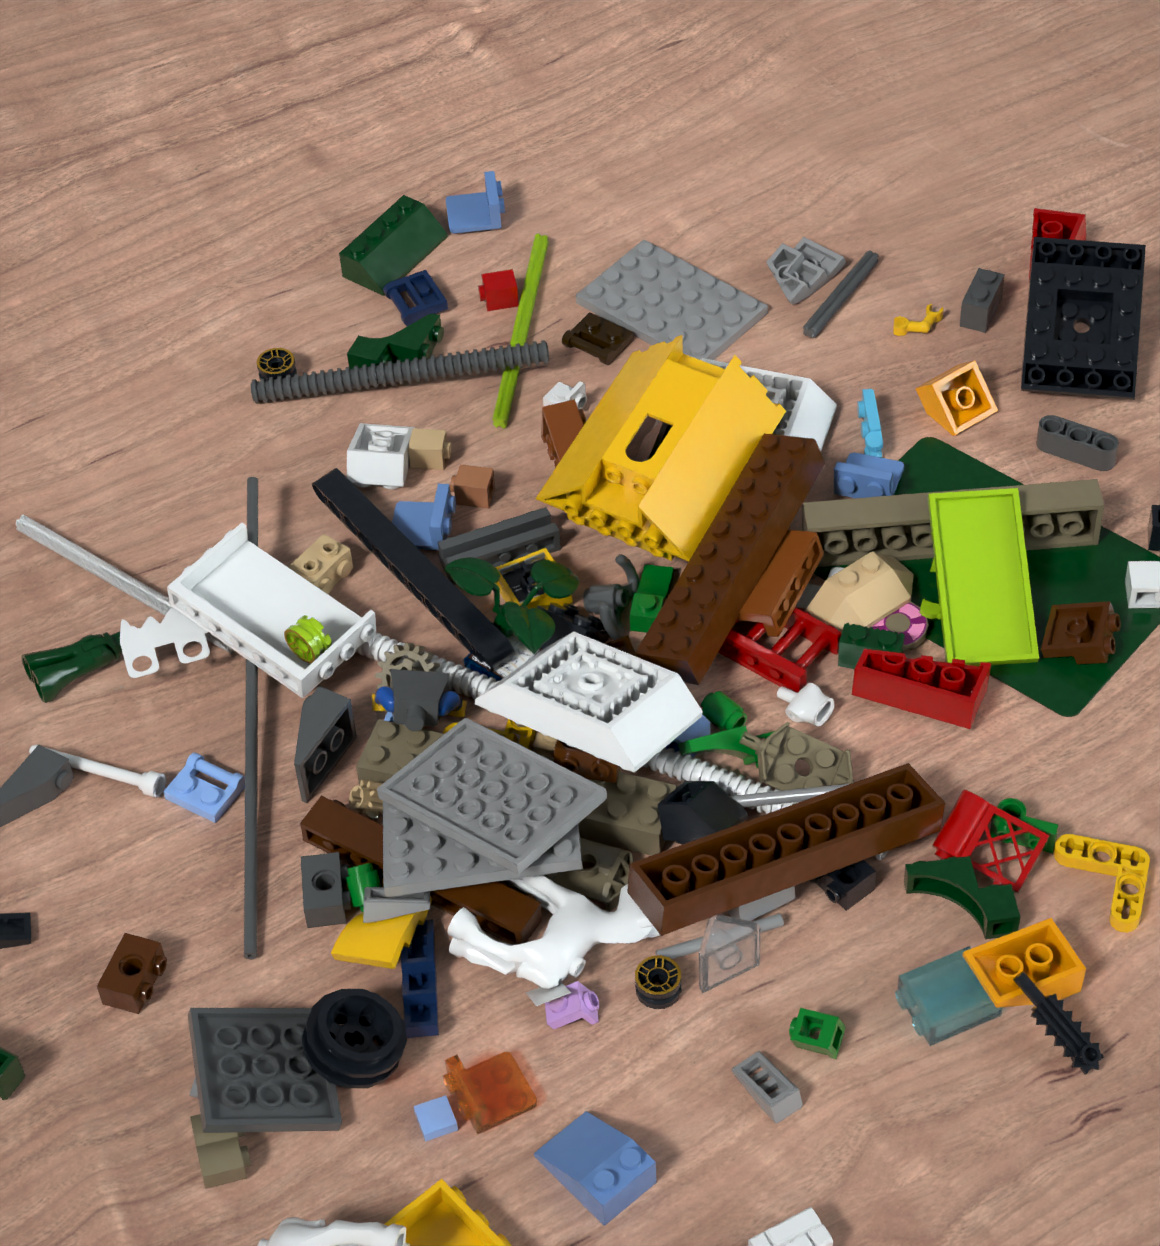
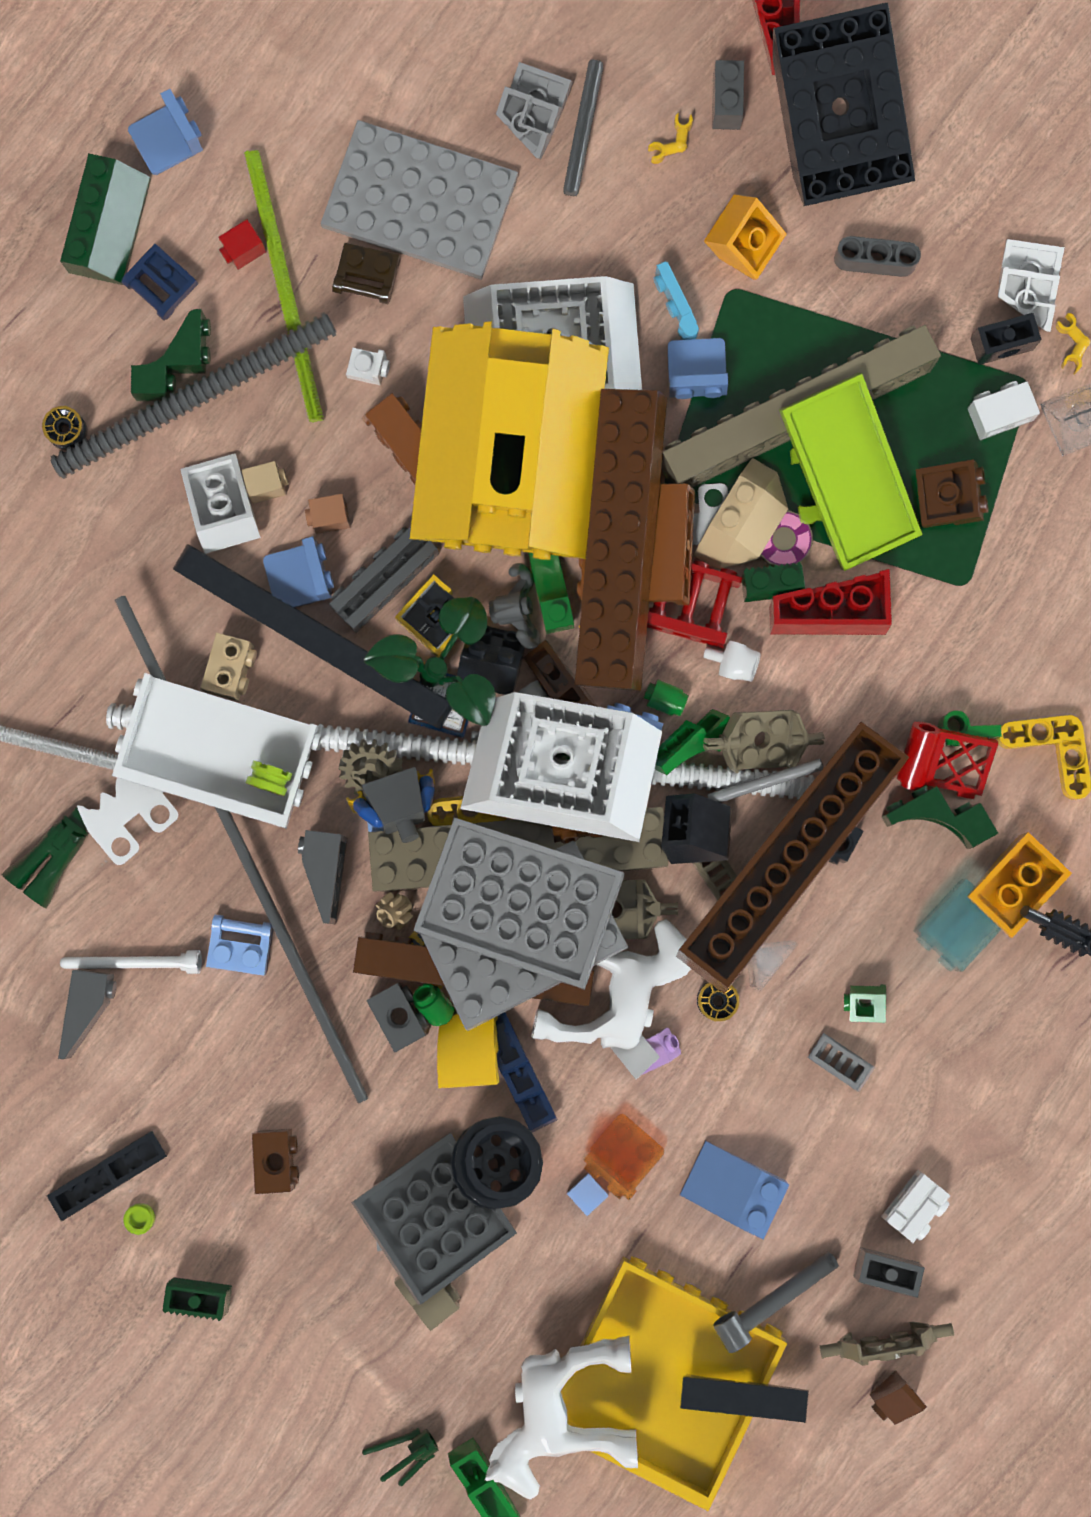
camera: 20 degrees left, 35 degrees up
(379, 907) = (463, 1036): light grey slope -> none

